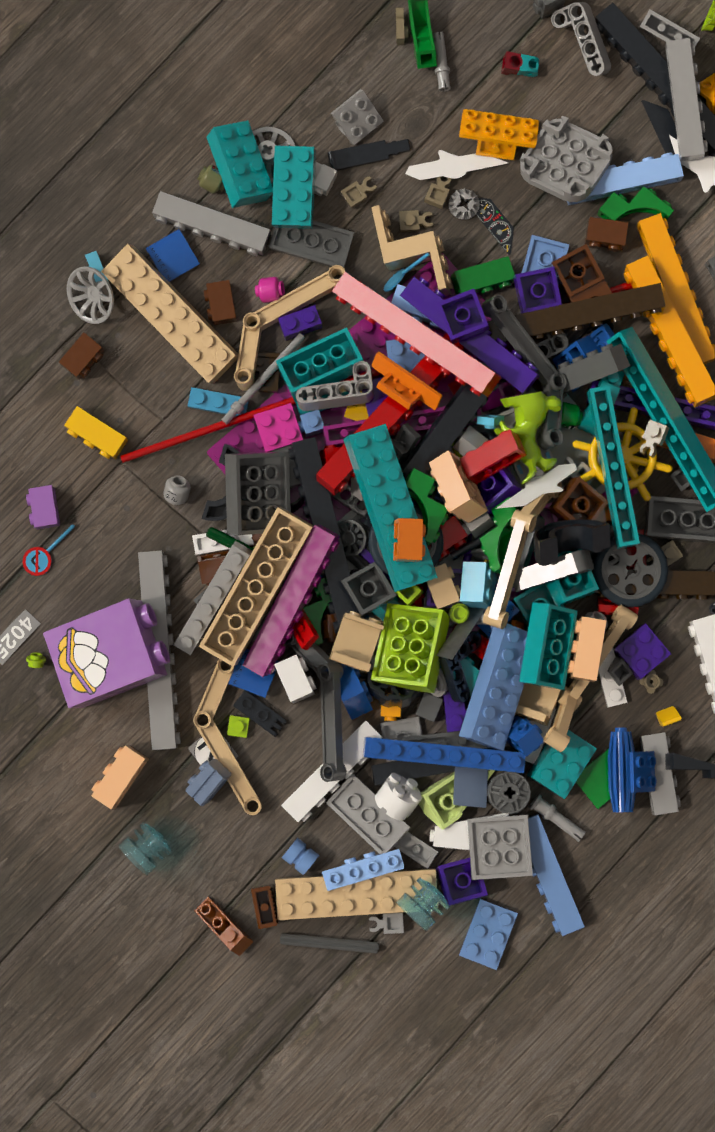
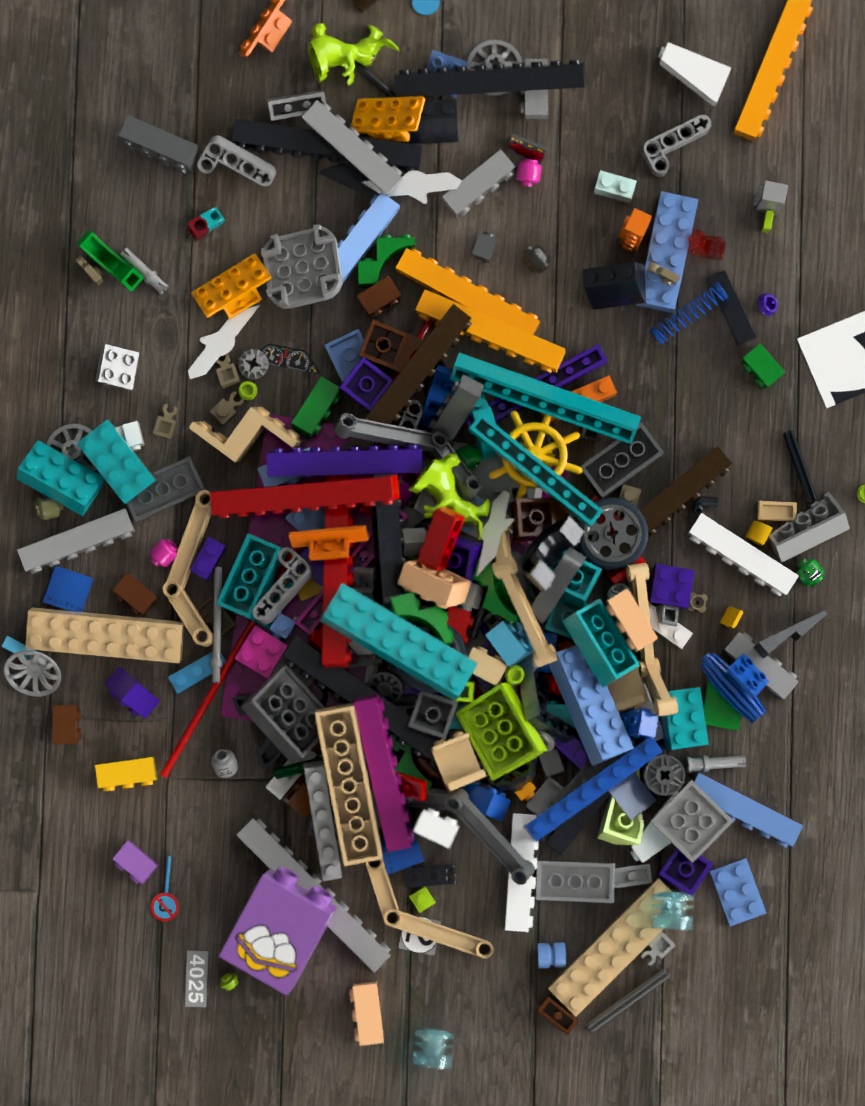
camera: 45 degrees left, 0 degrees up
(151, 372) = (131, 693): none -> dark purple brick
(208, 781) = (435, 960): sand blue brick -> none
(223, 926) = (539, 1056): dark orange slope -> none
(363, 869) = (606, 924): light blue bracket -> none
(366, 154) = (147, 388): black piece -> none
(397, 277) = (251, 464): dark azure piece -> none
(398, 796) = (586, 848): white brick -> none
(410, 539) = (434, 654): orange piece -> none
(442, 220) = (247, 390): none -> lime plate
(463, 316) = (329, 453): dark purple brick -> none
(489, 421) = (414, 512): medium azure plate -> none
(654, 435) = (545, 419): plate -> none

